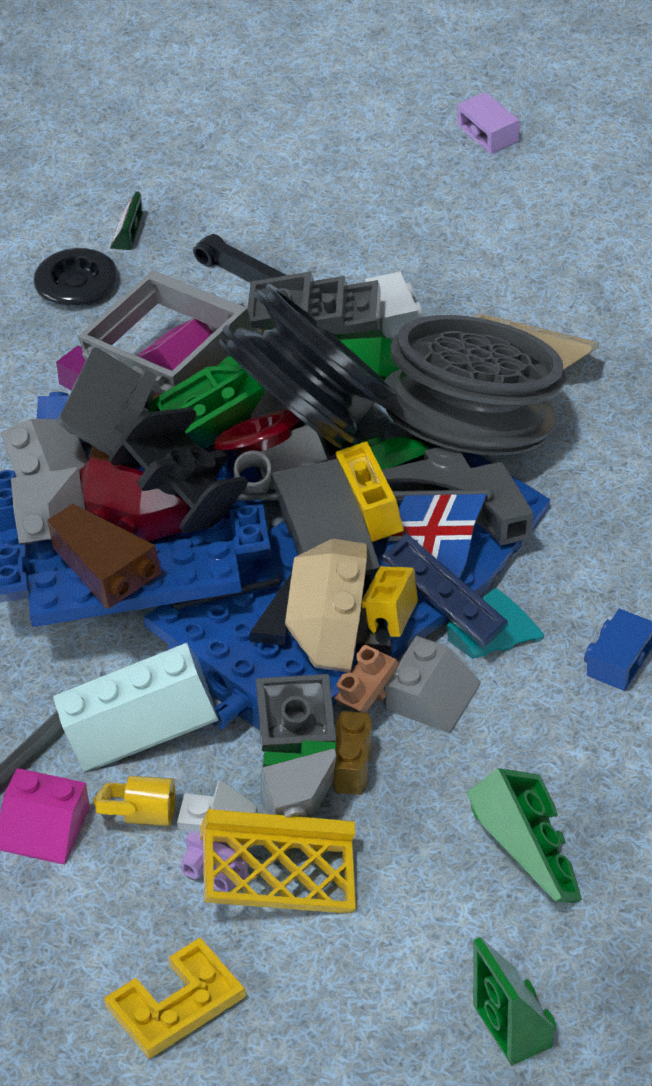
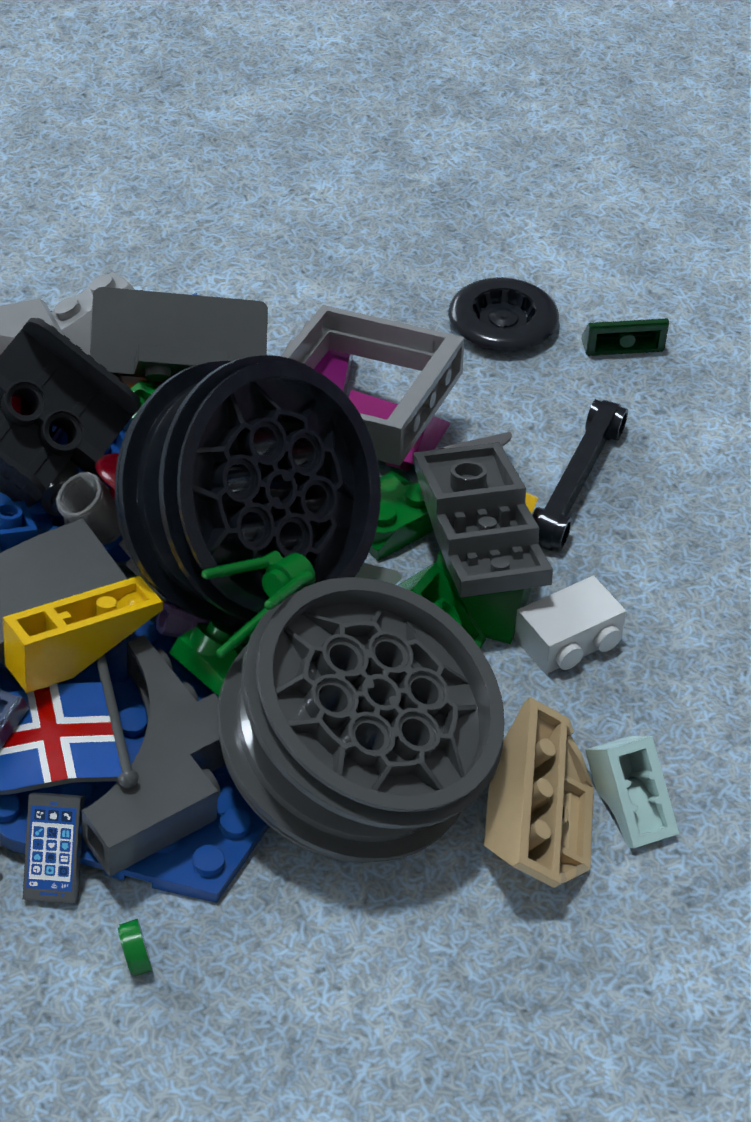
camera: 70 degrees right, 0 degrees up
(390, 369) = (279, 582): none -> green plant
(502, 559) = (53, 847): none -> tile
(528, 304) = (634, 788): none -> light aqua arch
(580, 538) = (134, 948): none -> green tile

